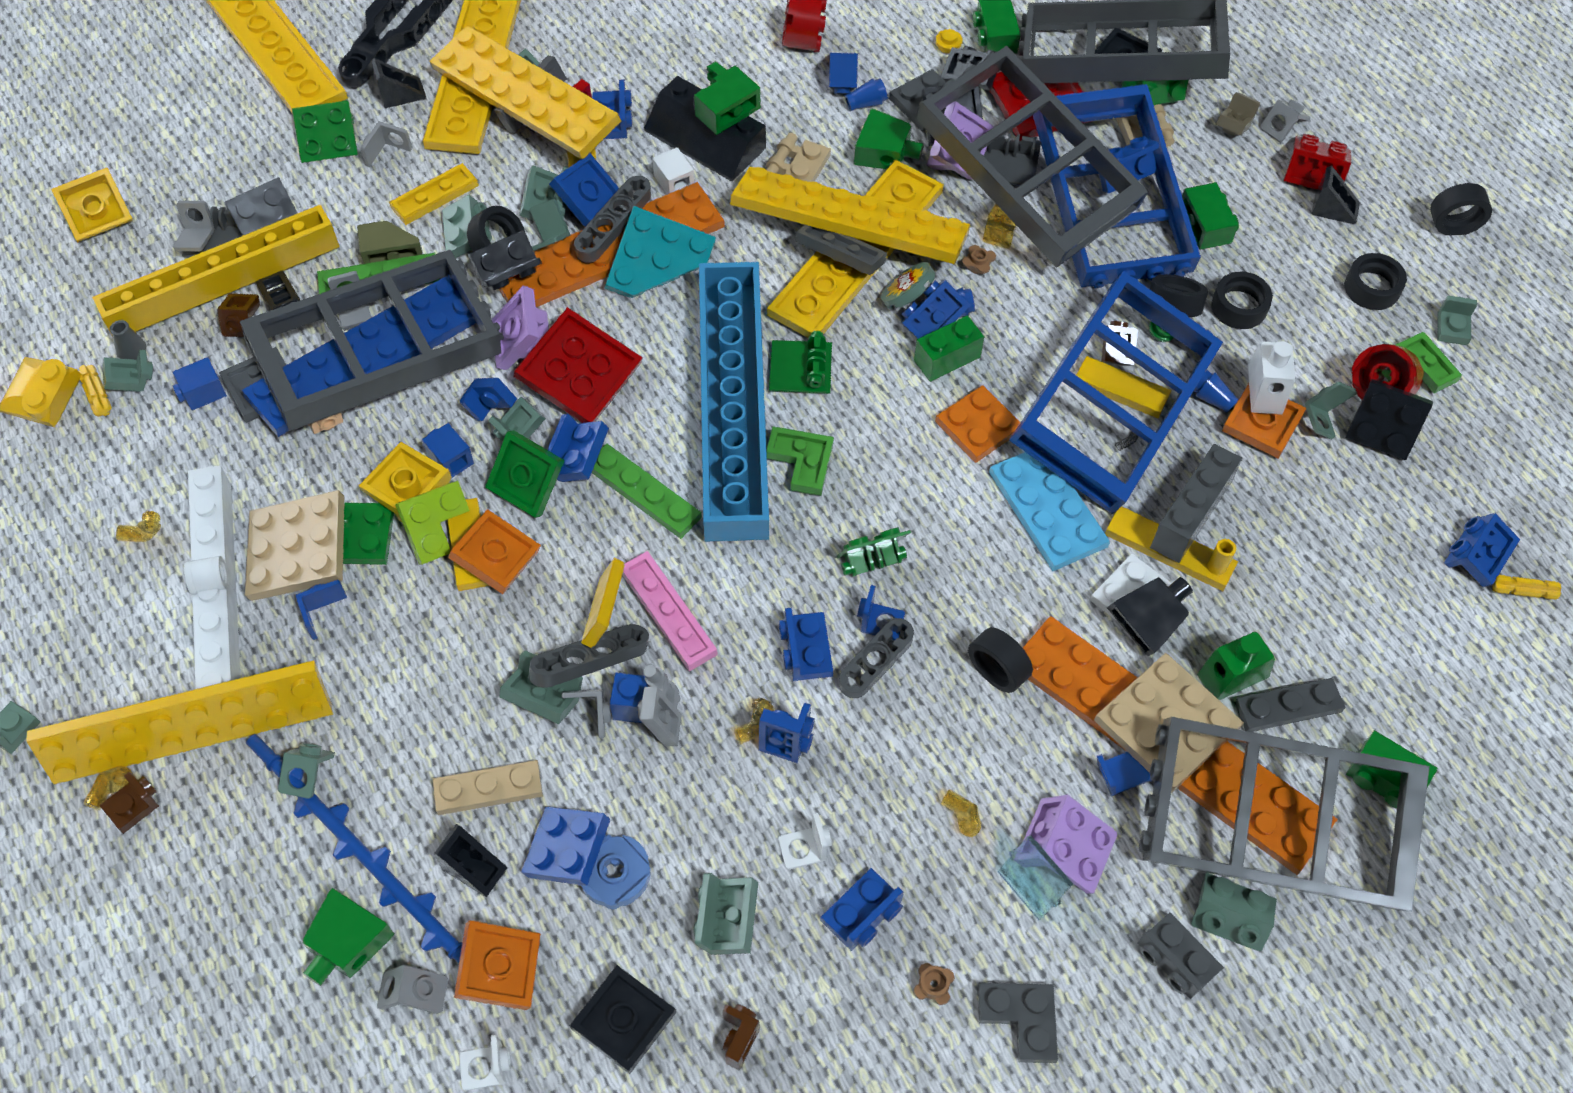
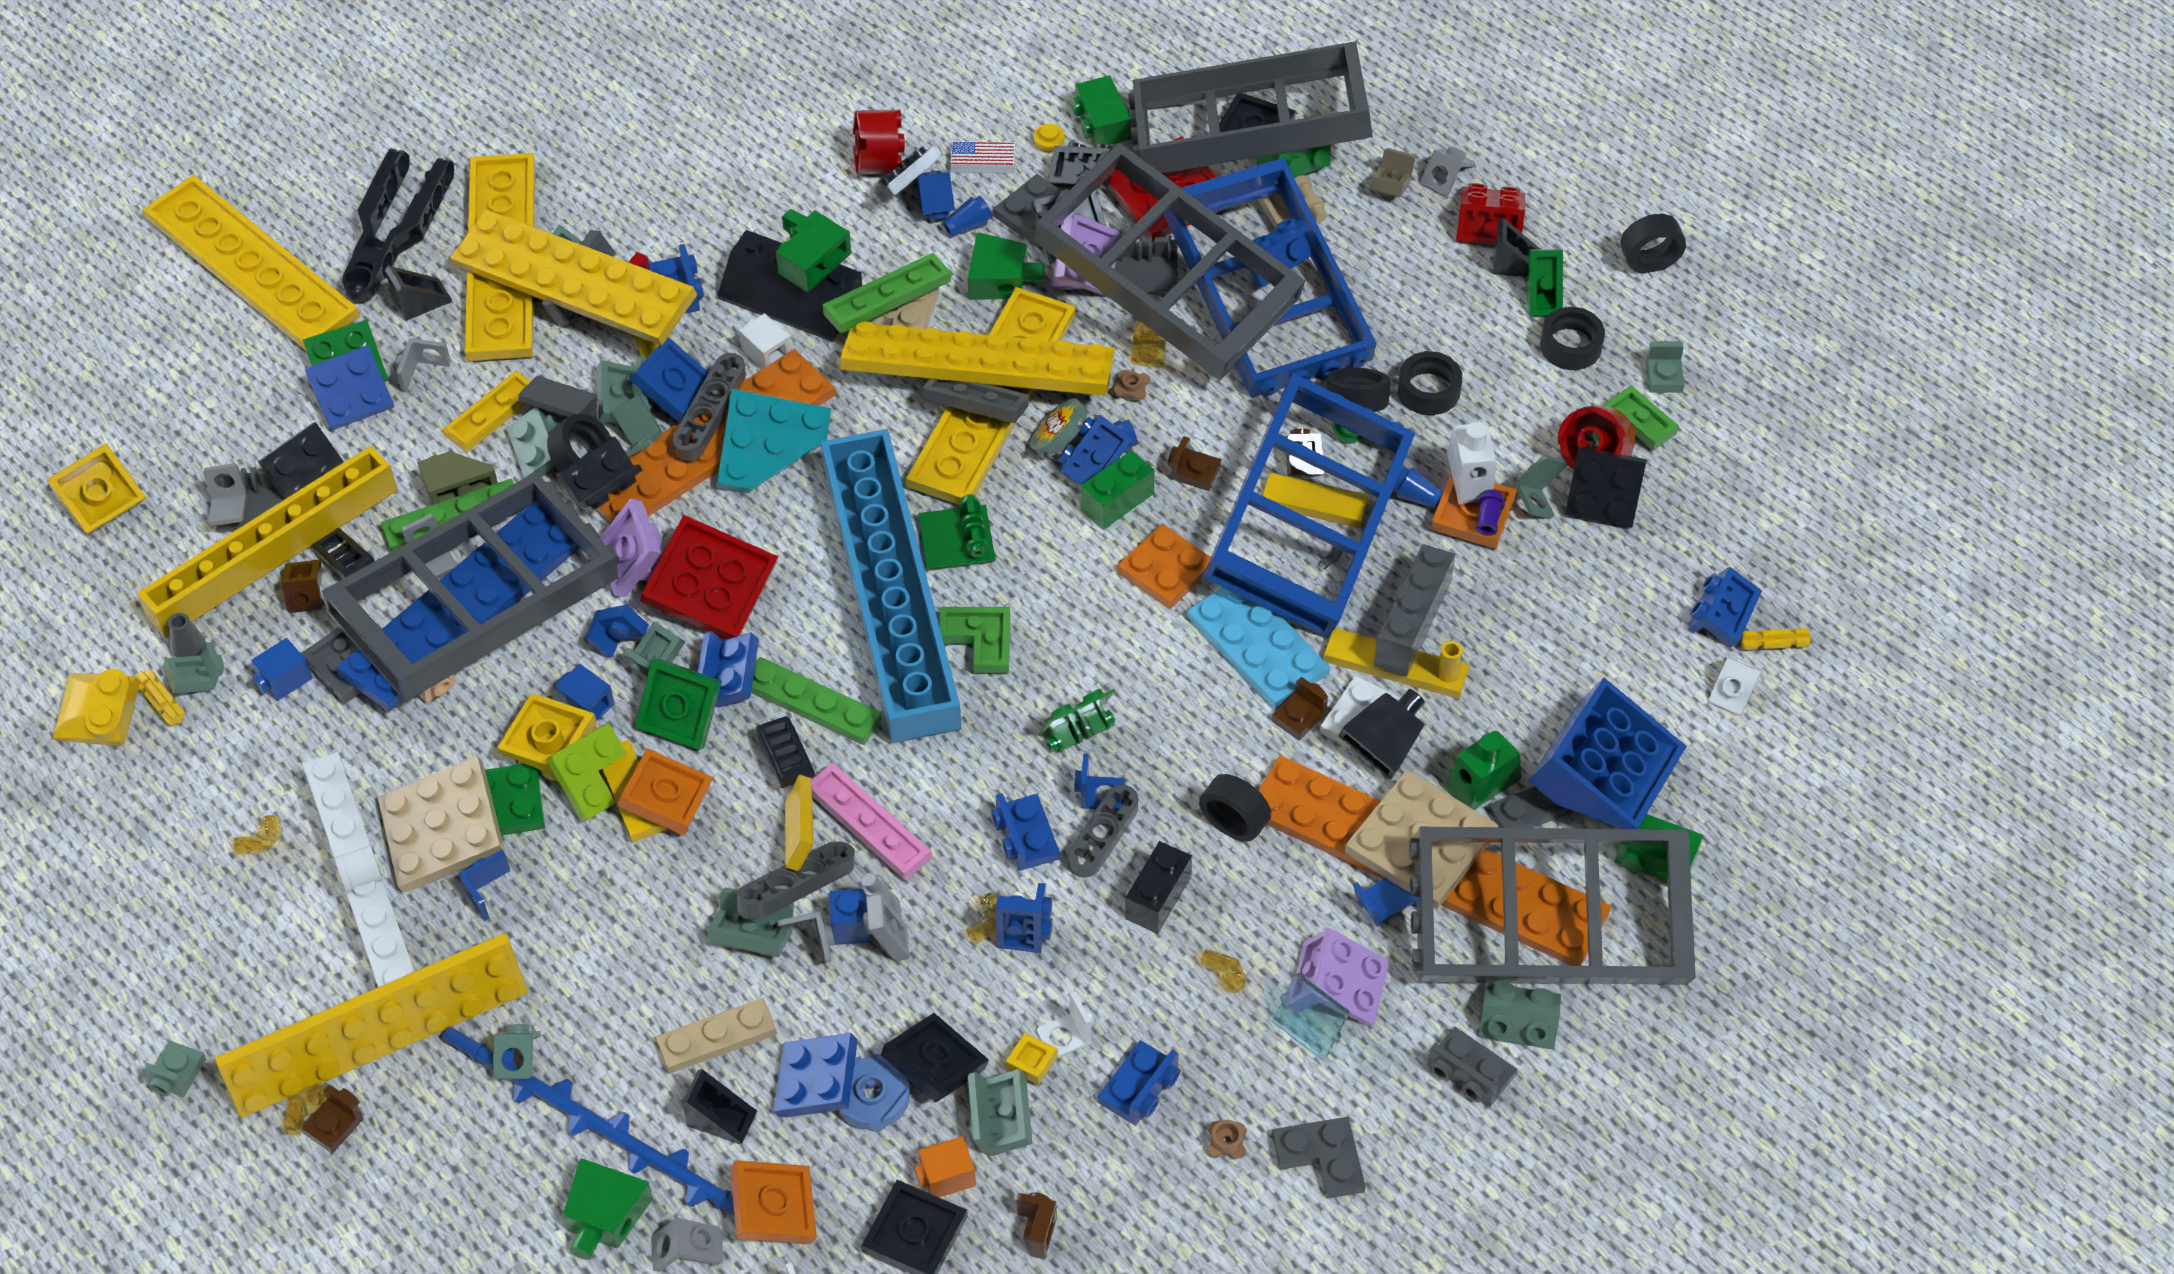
camera: 10 degrees left, 5 degrees down
(321, 155) = (349, 388): none -> blue plate
(489, 191) = (558, 398): none -> dark grey panel
(607, 532) = (784, 749): none -> black slope
(664, 962) = (945, 1168): none -> orange brick
(677, 850) = (934, 1057): none -> black plate
(767, 867) = (1032, 1058): none -> yellow plate
(783, 146) = (887, 292): none -> bright green plate
(815, 53) = (899, 178): none -> plate
(890, 48) = (983, 157): none -> tile
(916, 722) = (1158, 887): none -> black brick
(1019, 339) = (1193, 466): none -> reddish brown bracket
(1077, 576) = (1302, 709): none -> reddish brown bracket
(1210, 215) = (1379, 294): green brick -> none
(1281, 418) = (1490, 505): none -> dark purple pin
(1356, 677) = (1608, 759): none -> blue slope
(1359, 227) = (1544, 281): none -> green slope
(1484, 625) = (1735, 685): none -> white bracket

